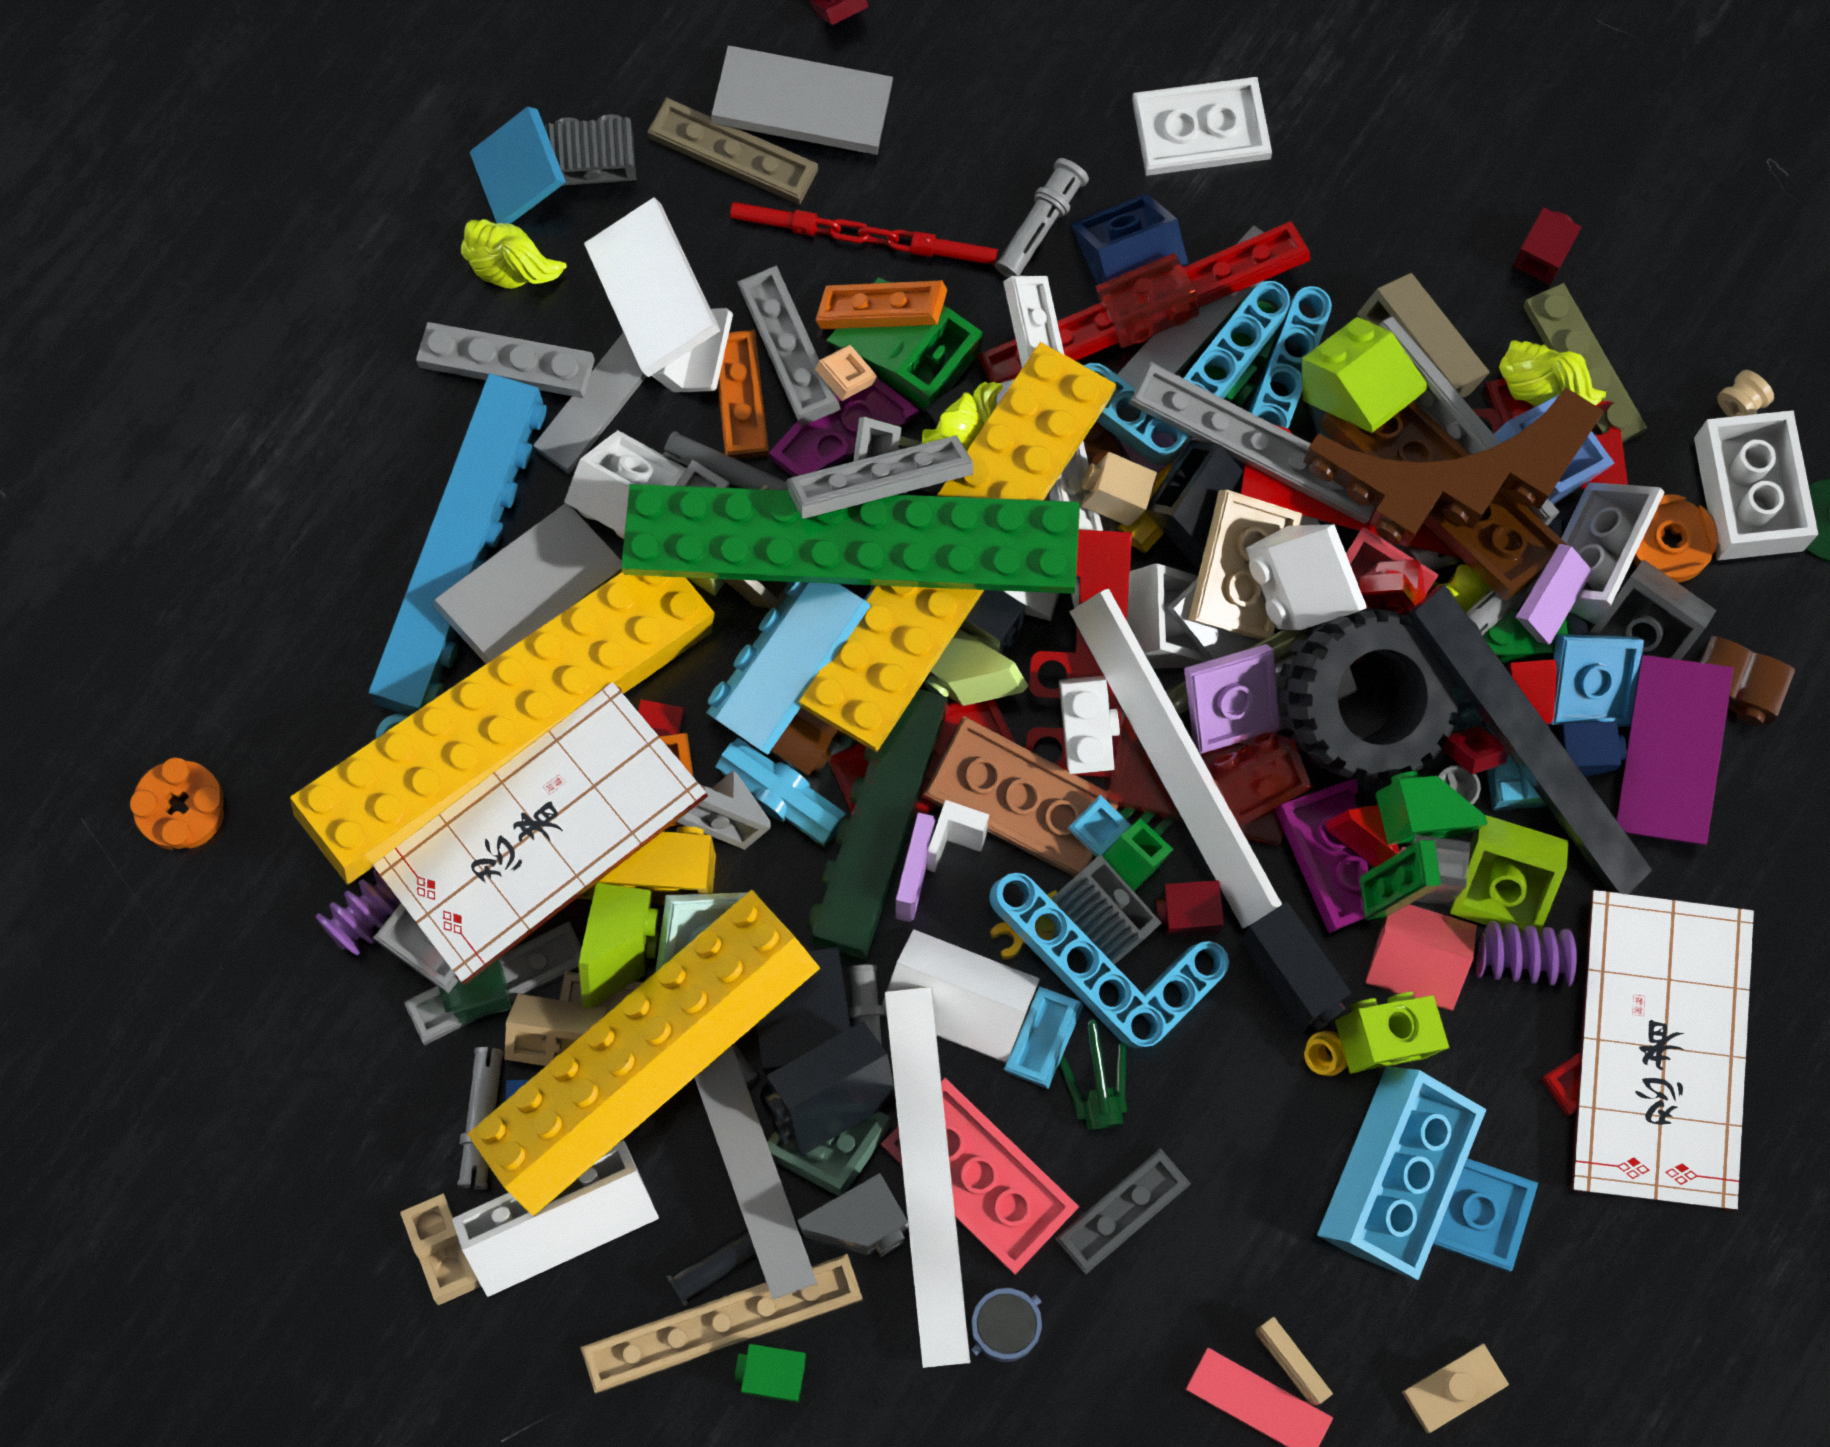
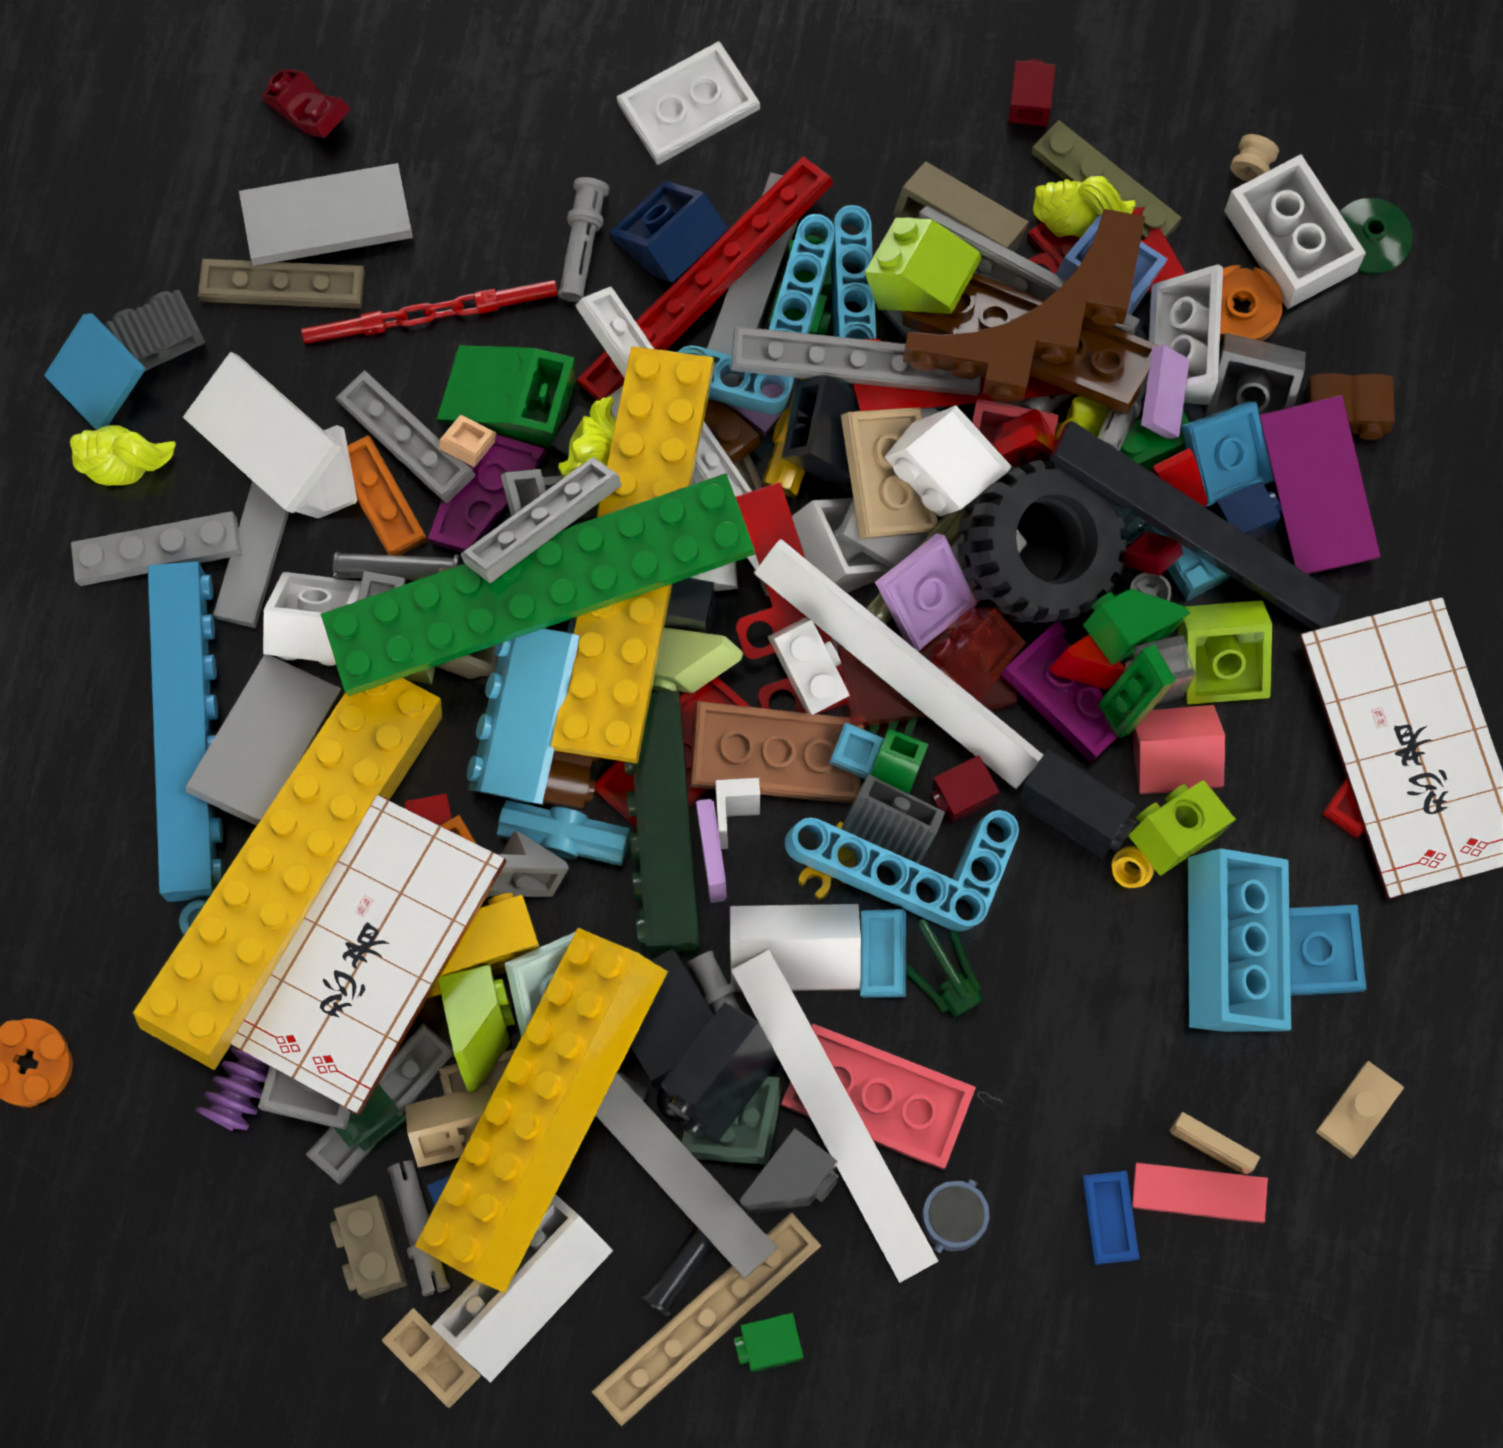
camera: 20 degrees left, 0 degrees up
(425, 1117) = (370, 1248): none -> dark tan brick
(881, 305) = (473, 368): orange tile -> none
(1117, 488) = (751, 448): tan brick -> none
(1122, 1211) = (1014, 1076): dark grey tile -> none
(1149, 300) = (708, 273): clear red bracket -> none
(1159, 1391) = (1110, 1218): none -> blue tile
(1527, 952) = (1267, 709): medium lavender piece -> none

